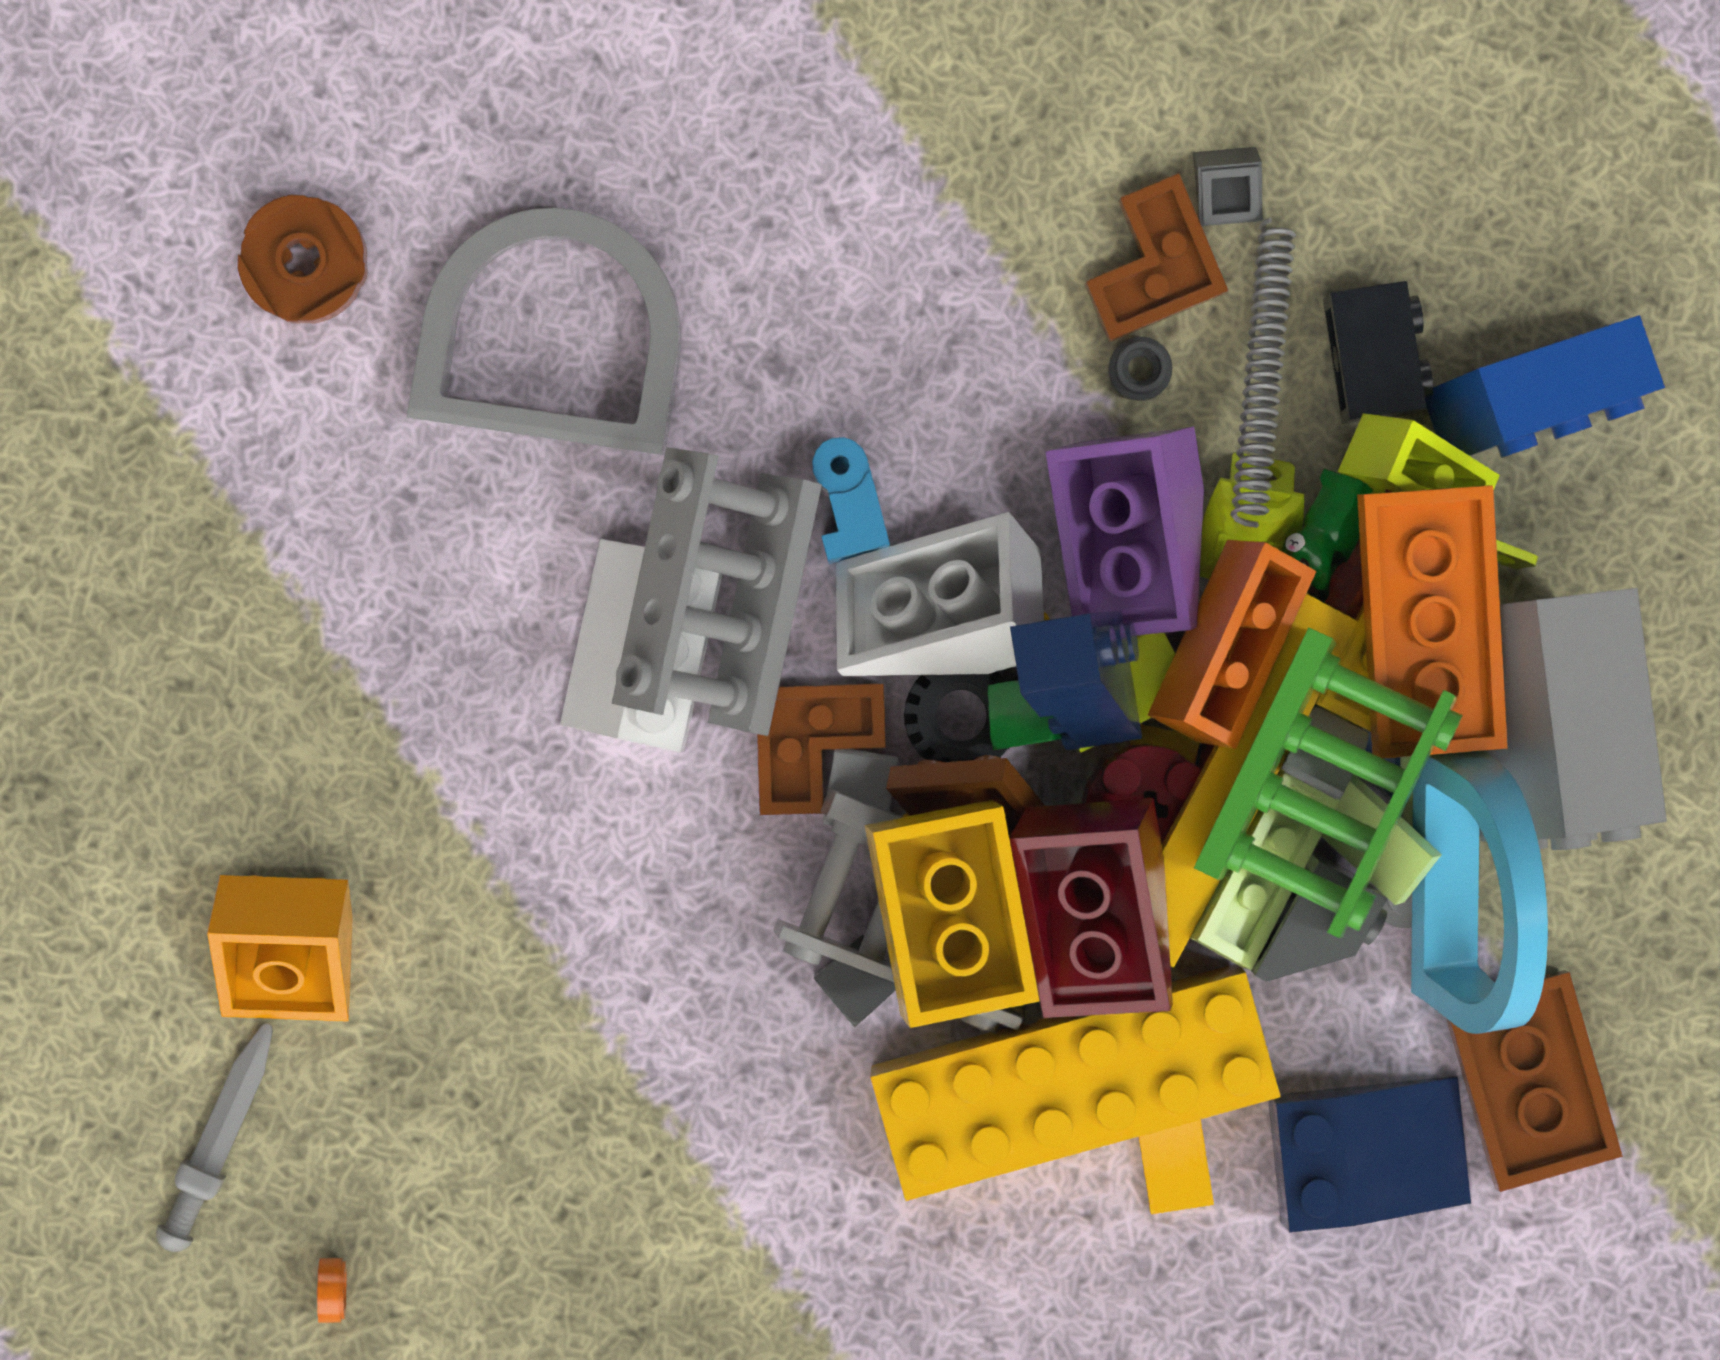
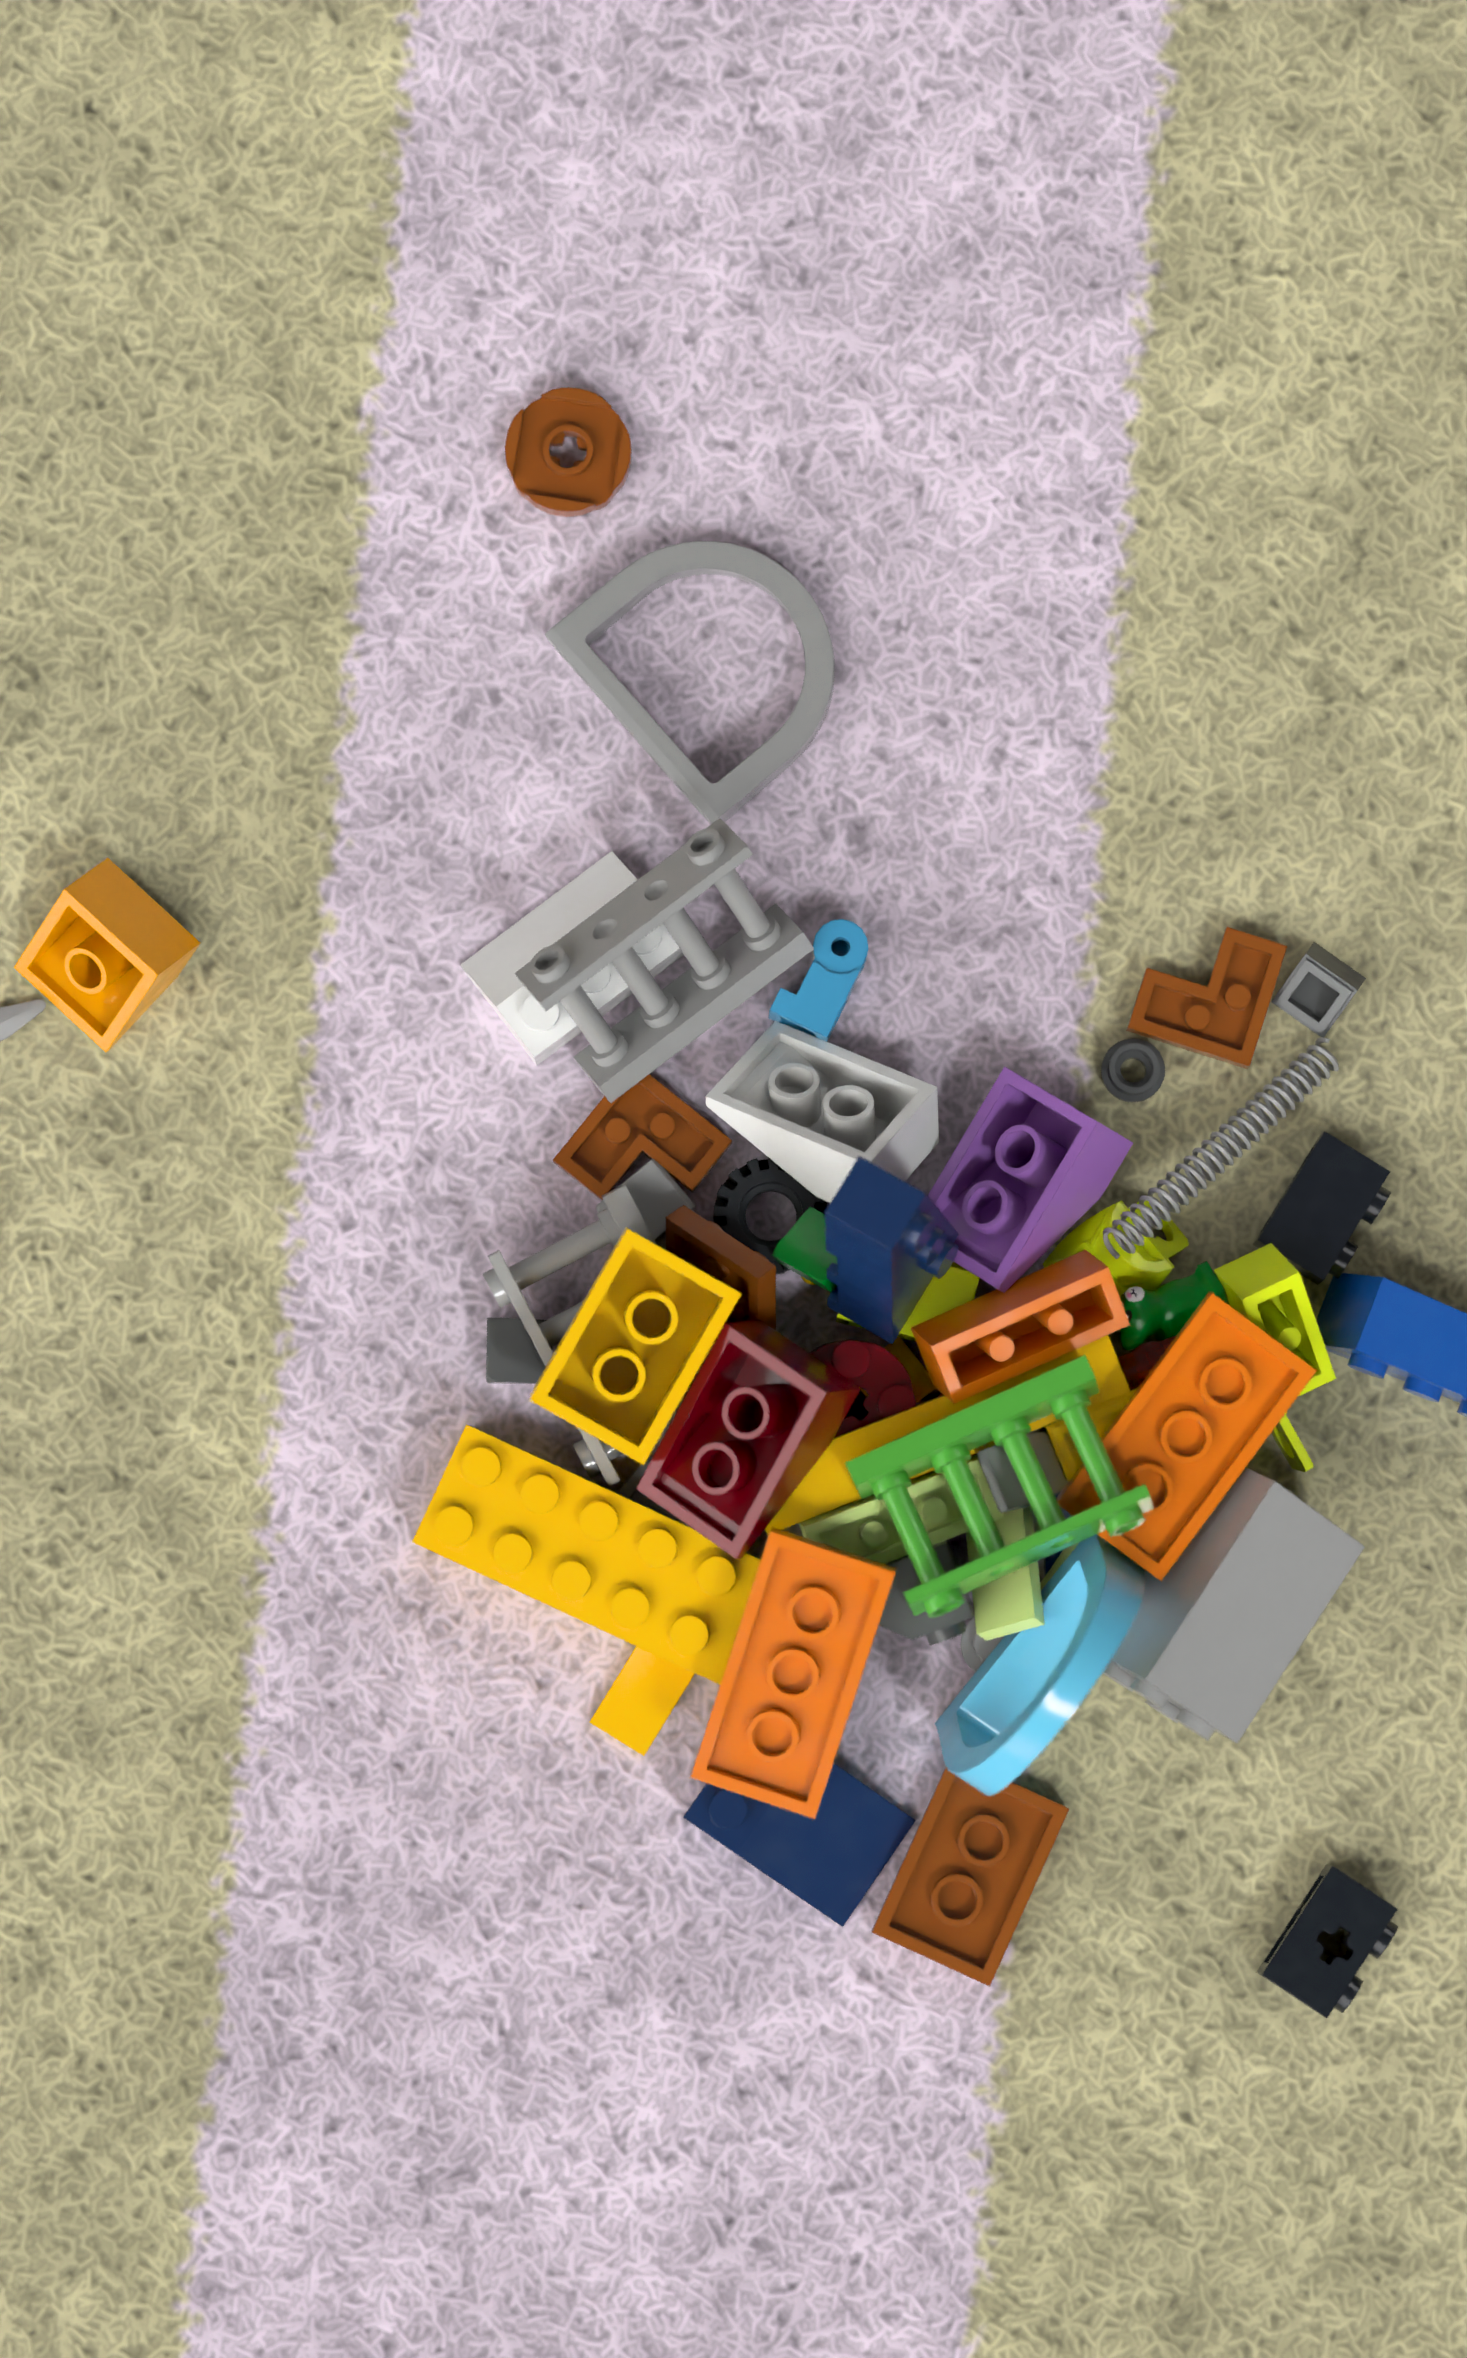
camera: 40 degrees right, 5 degrees down
(1287, 1058) = (793, 1672): none -> orange plate

